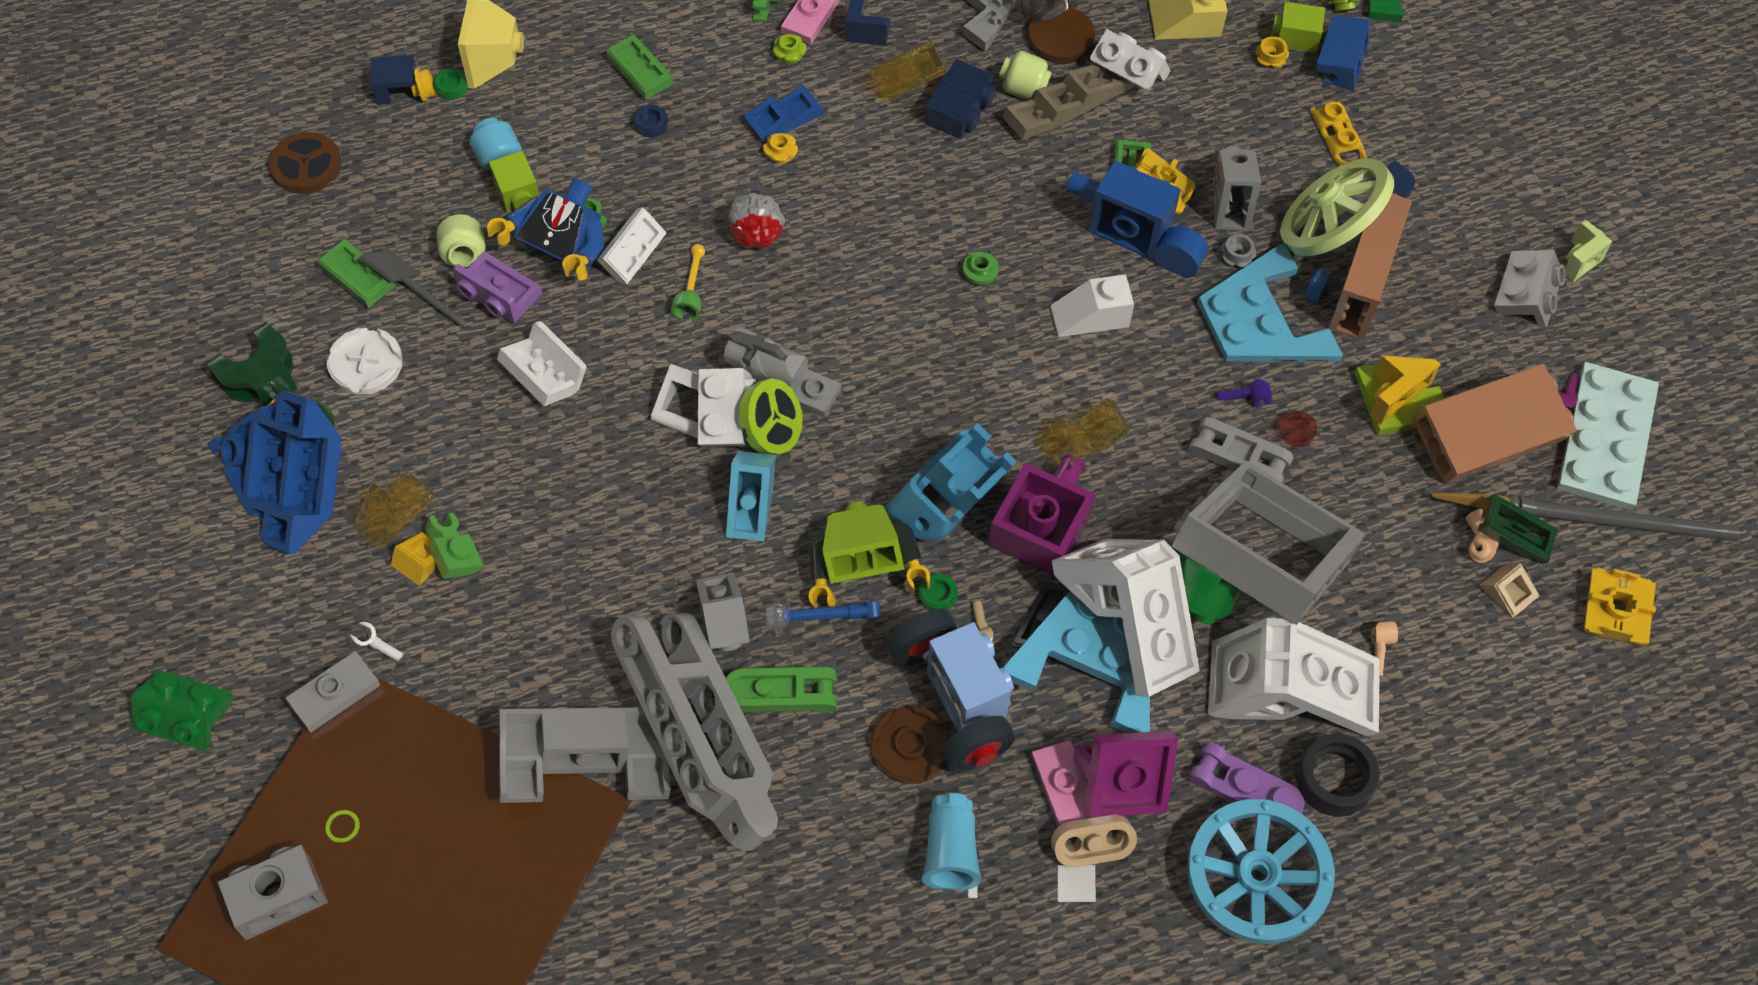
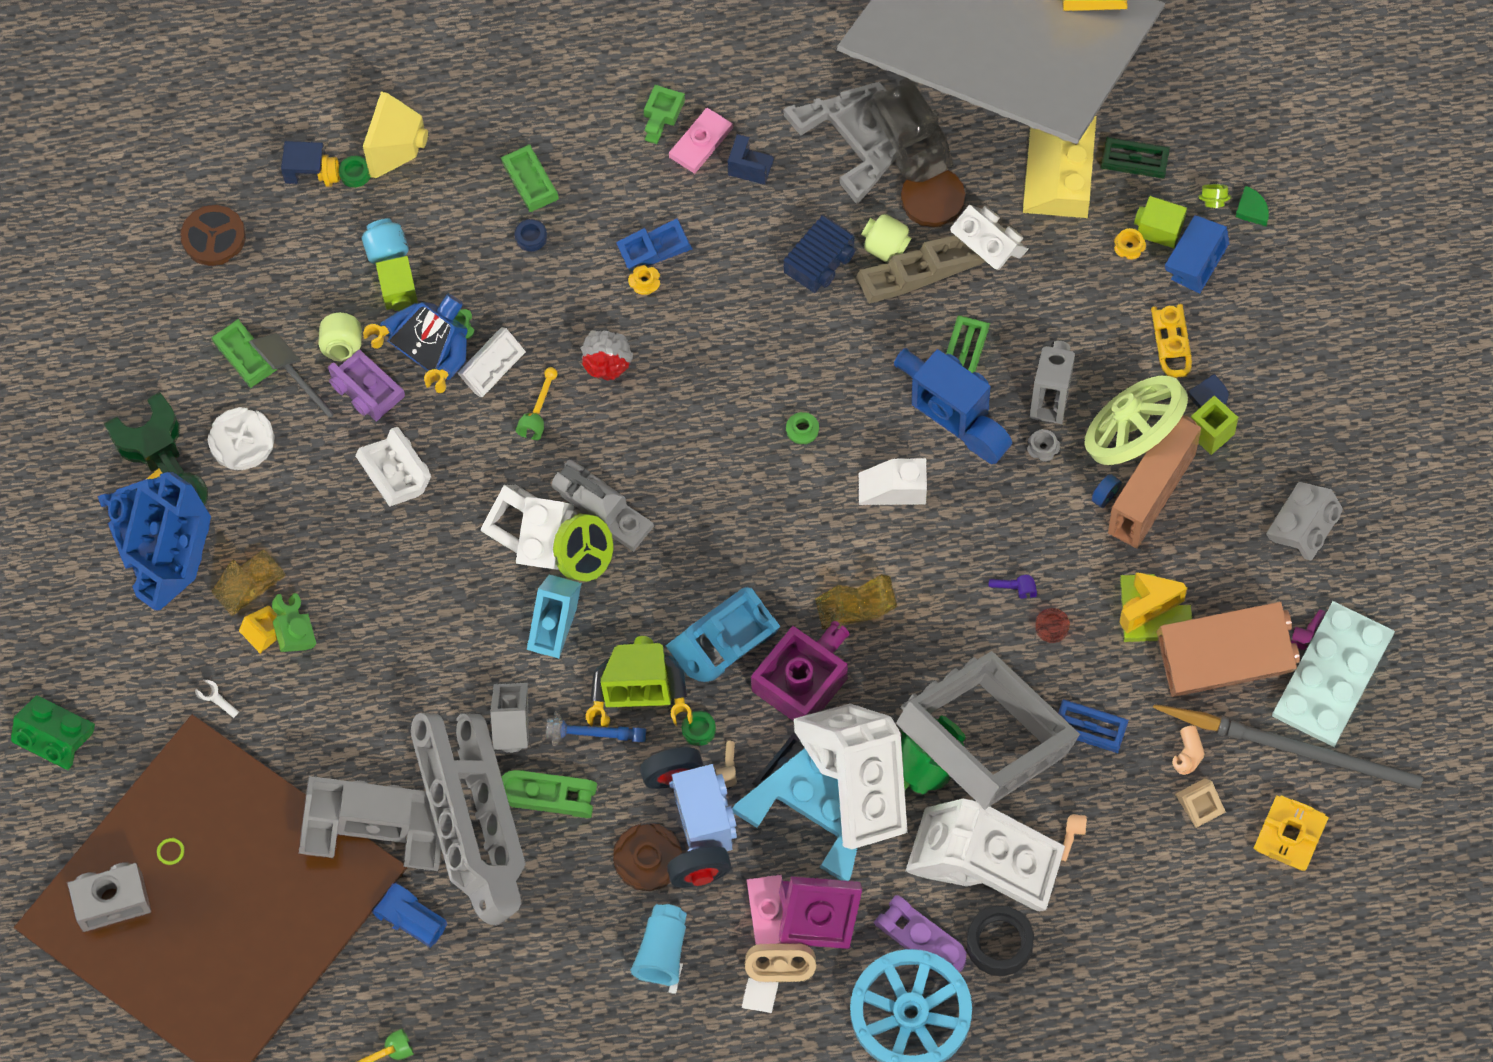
camera: 15 degrees right, 5 degrees up
(333, 691) = (176, 737): light grey plate -> none
(640, 854) = (406, 913): none -> blue piece
(789, 54) = (676, 183): lime plate -> none
(909, 70) = (775, 220): clear yellow slope -> none
(1158, 168) = (990, 362): yellow piece -> none
(1238, 448) = (993, 637): light grey plate -> none
(1249, 321) = (1035, 512): medium azure wing -> none
(1381, 515) = (1100, 742): none -> blue tile
(1423, 202) = (1216, 424): none -> lime brick
(1517, 535) = (1196, 735): dark green tile -> none
(1588, 252) = (1366, 497): yellowish green bracket -> none

